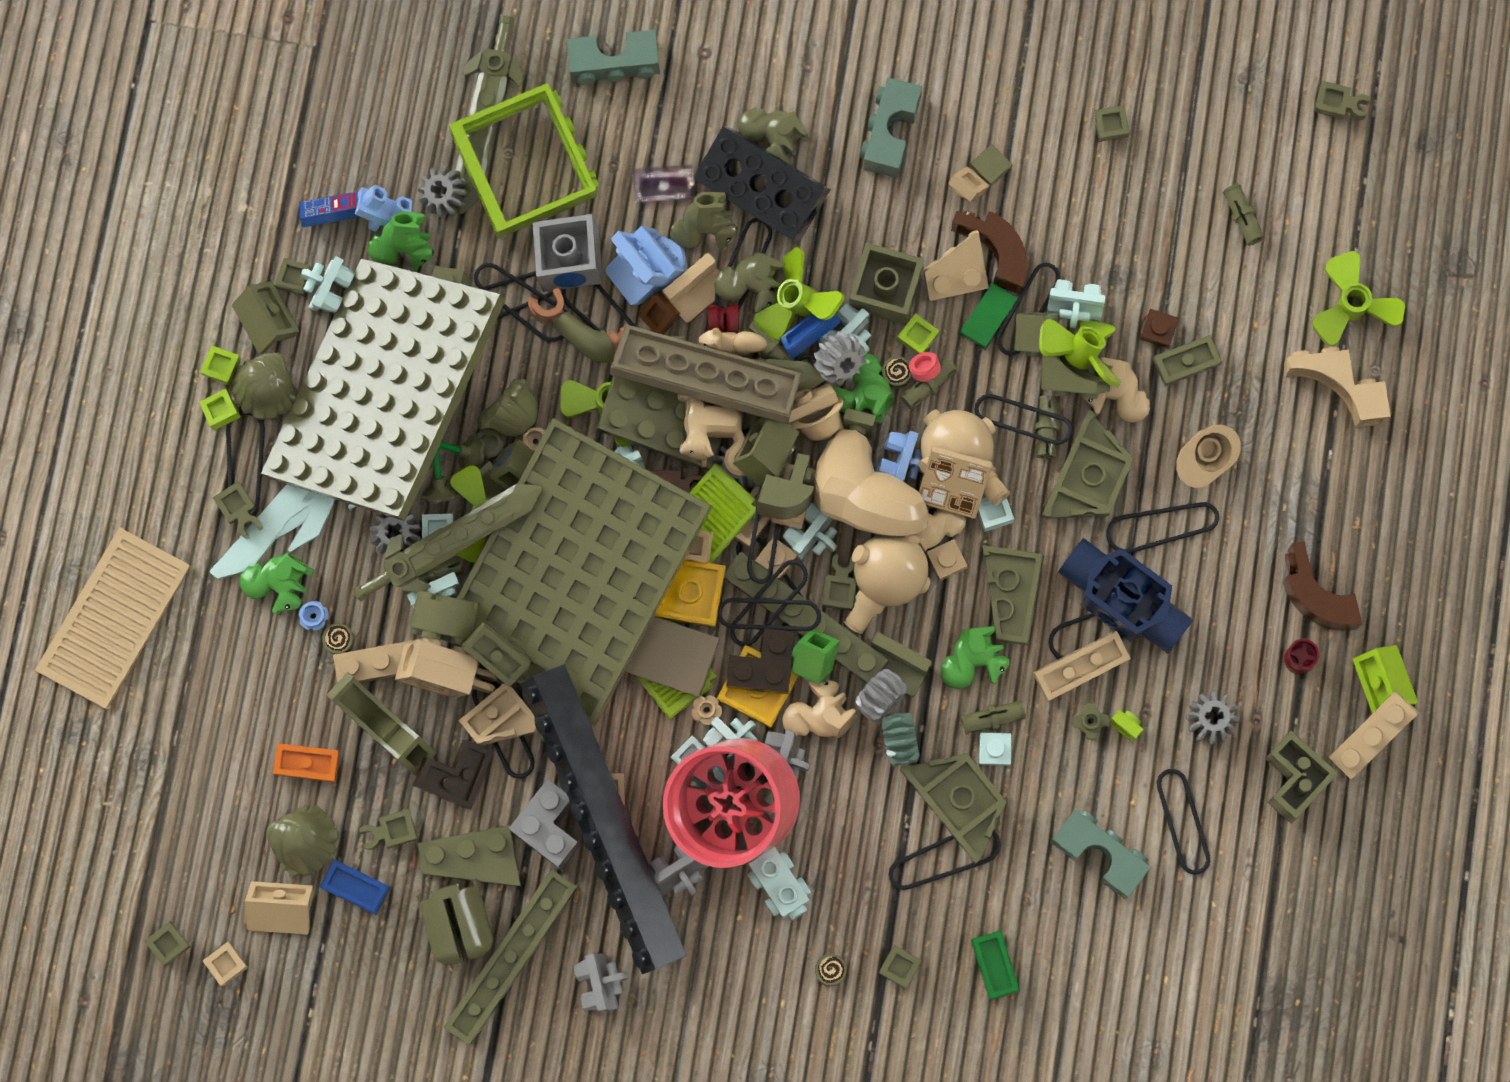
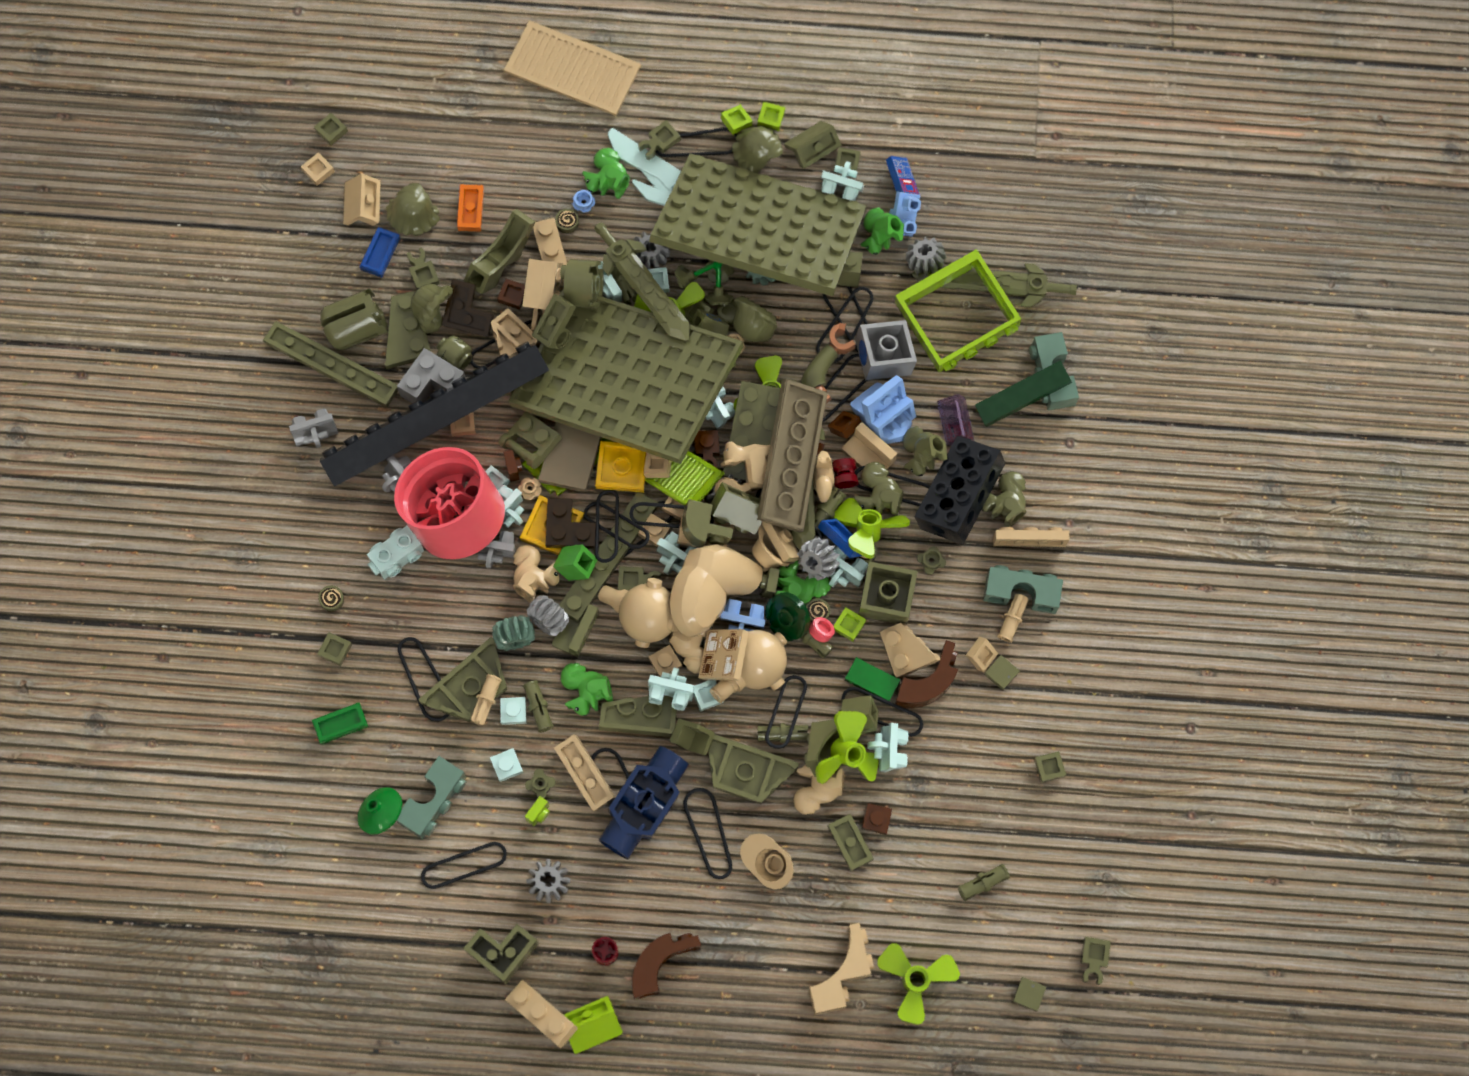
camera: 75 degrees right, 5 degrees down
(436, 715) = (511, 294): none -> reddish brown plate
(446, 819) = (426, 306): none -> olive hair
(511, 794) = (455, 351): none -> olive head
(636, 696) = (534, 433): none -> olive plate
(642, 94) = (1023, 393): none -> dark green tile
(675, 728) = (513, 465): none -> reddish brown plate
(825, 110) = (1031, 537): none -> tan plate
(843, 222) = (931, 553): none -> olive plate
(906, 403) = (788, 616): none -> dark green tile
(925, 143) = (1013, 618): none -> tan axle
(985, 564) = (672, 686): none -> light aqua hips
(985, 777) = (485, 699): none -> tan axle
(1049, 531) = (692, 737): none -> olive panel
(1063, 761) = (506, 765): none -> light aqua plate
(1120, 907) = (379, 810): none -> green dish
(1375, 179) = (1029, 994): none -> olive tile

